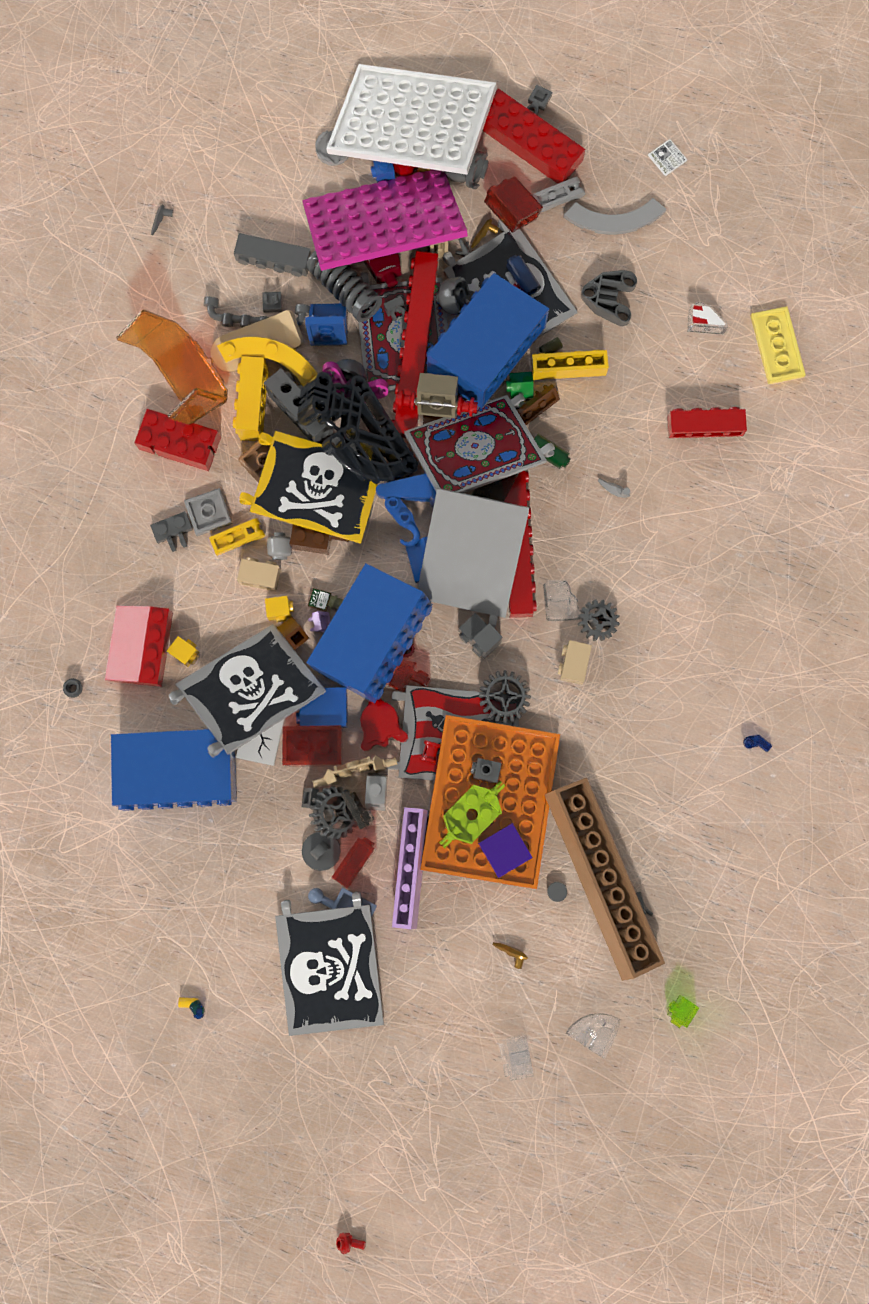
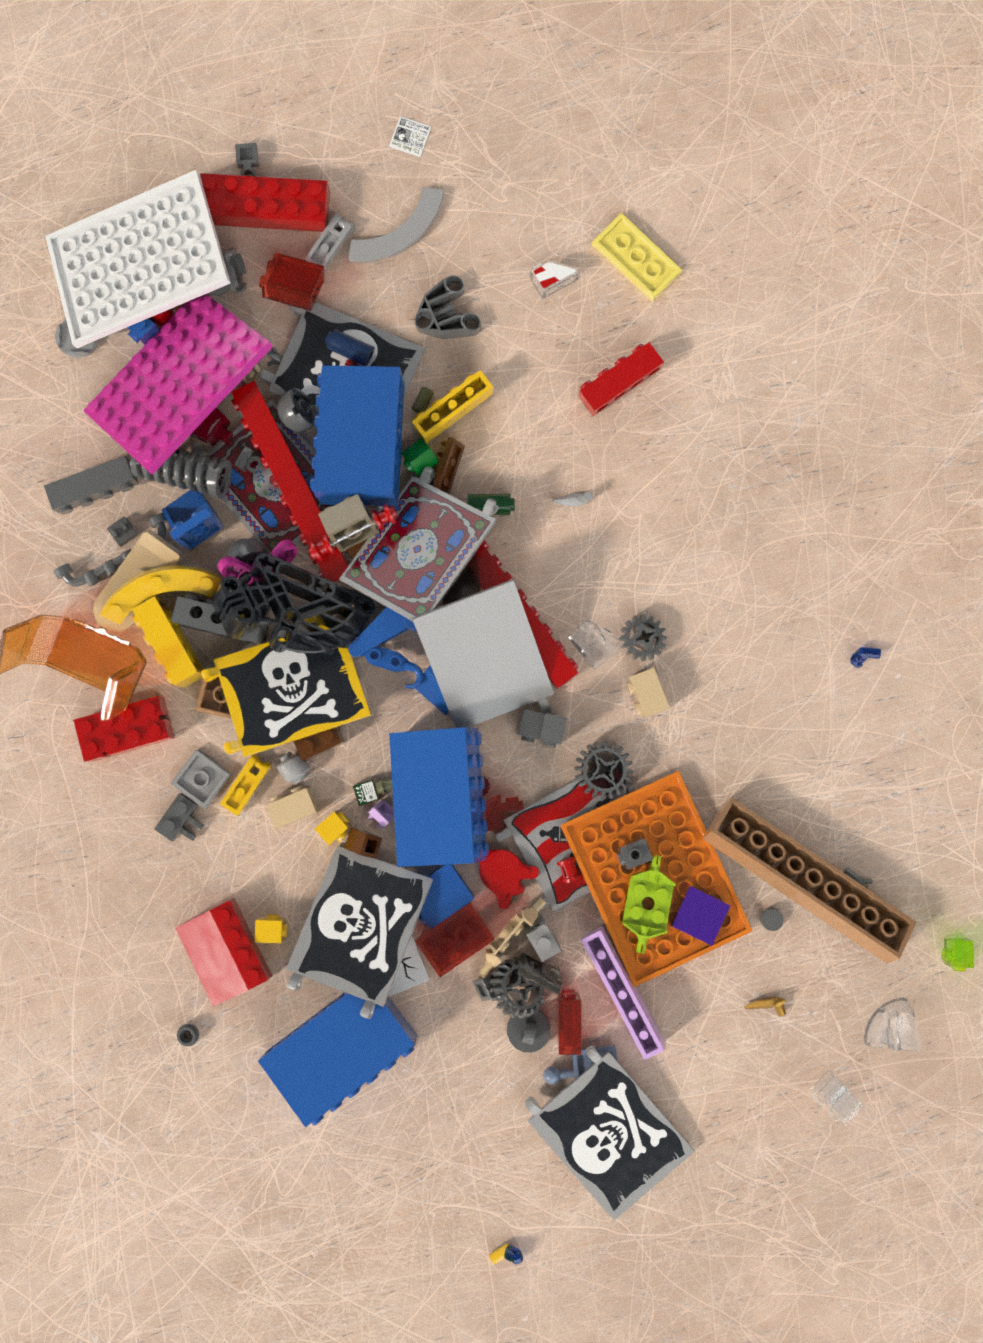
camera: 30 degrees left, 5 degrees up
(482, 233) = (281, 327): pearl gold bar -> none

